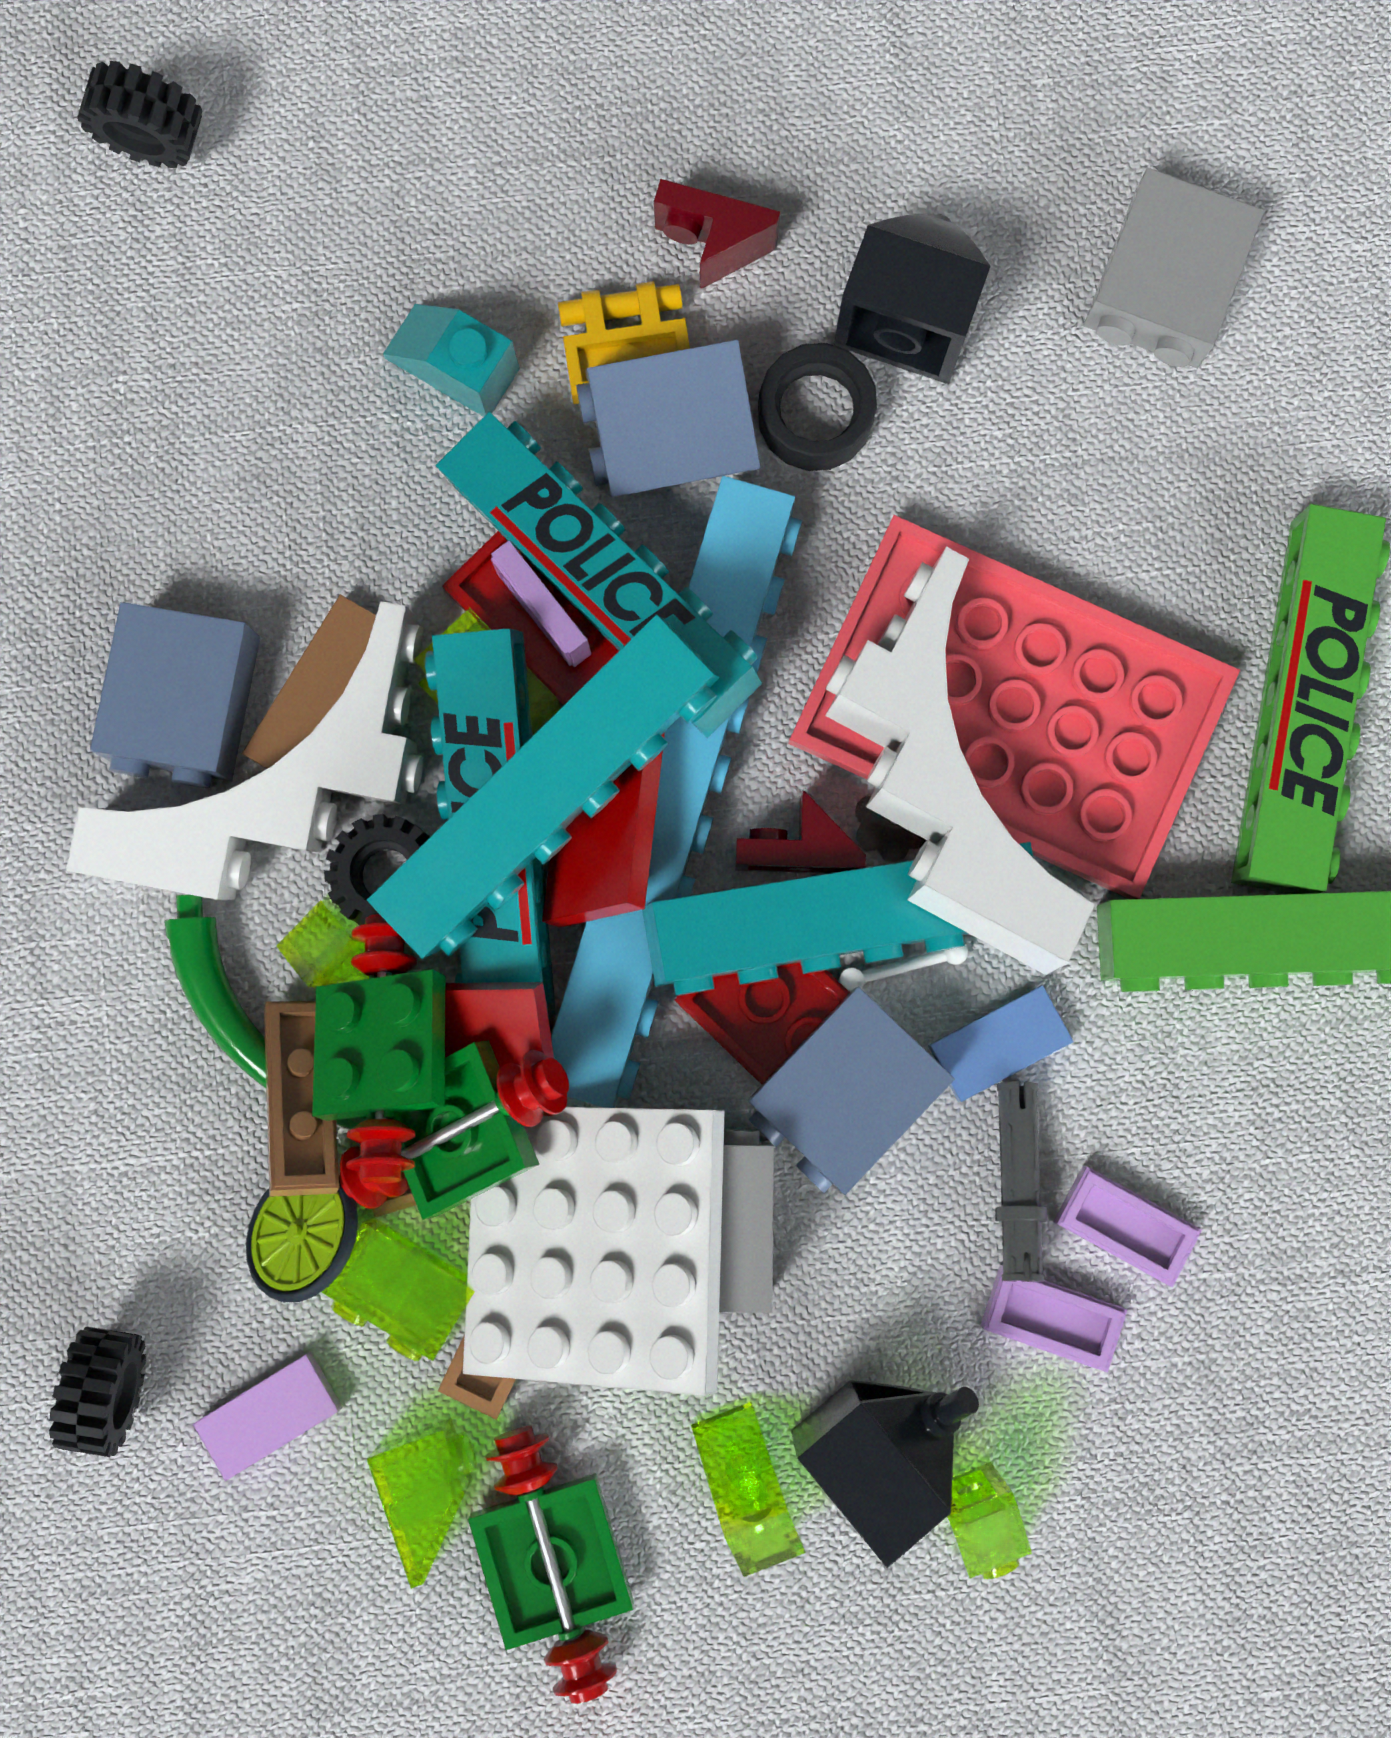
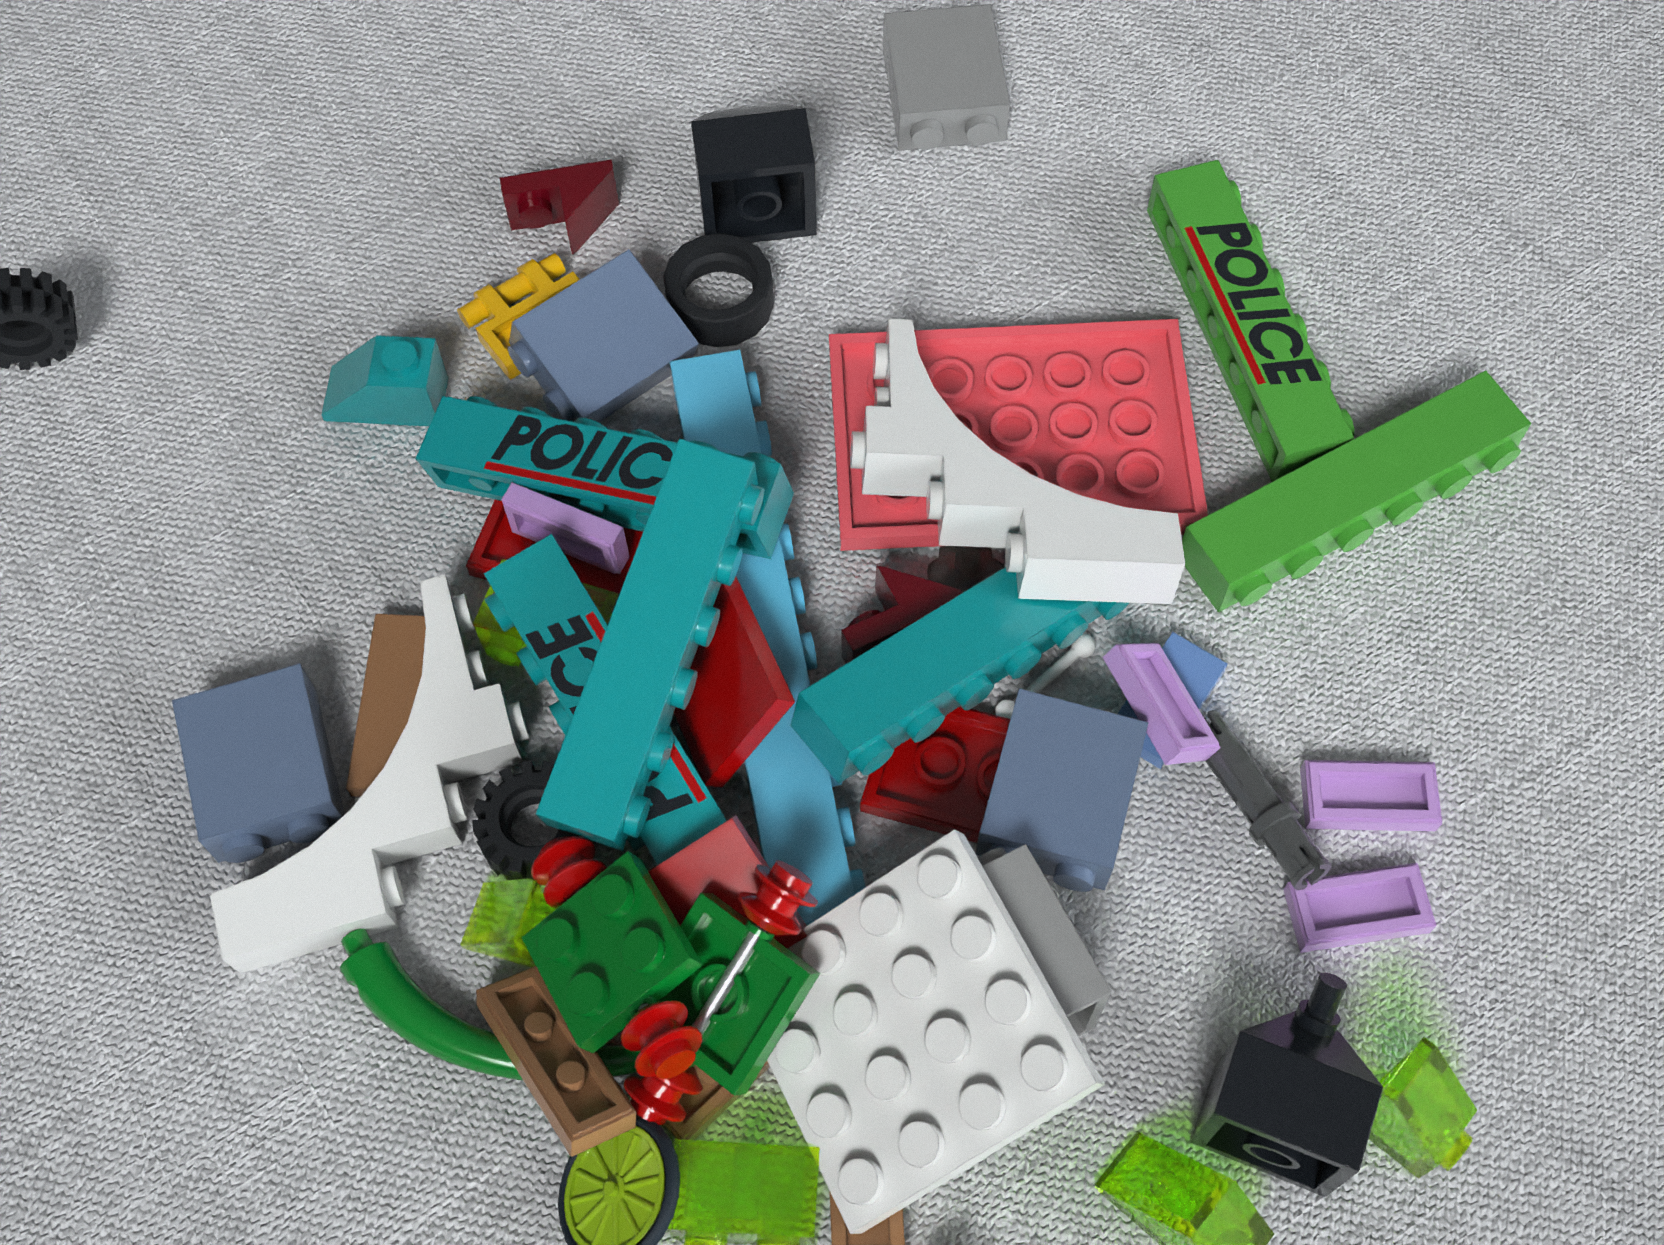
camera: 30 degrees left, 20 degrees down
(985, 1055) = (1163, 701): none -> lavender tile

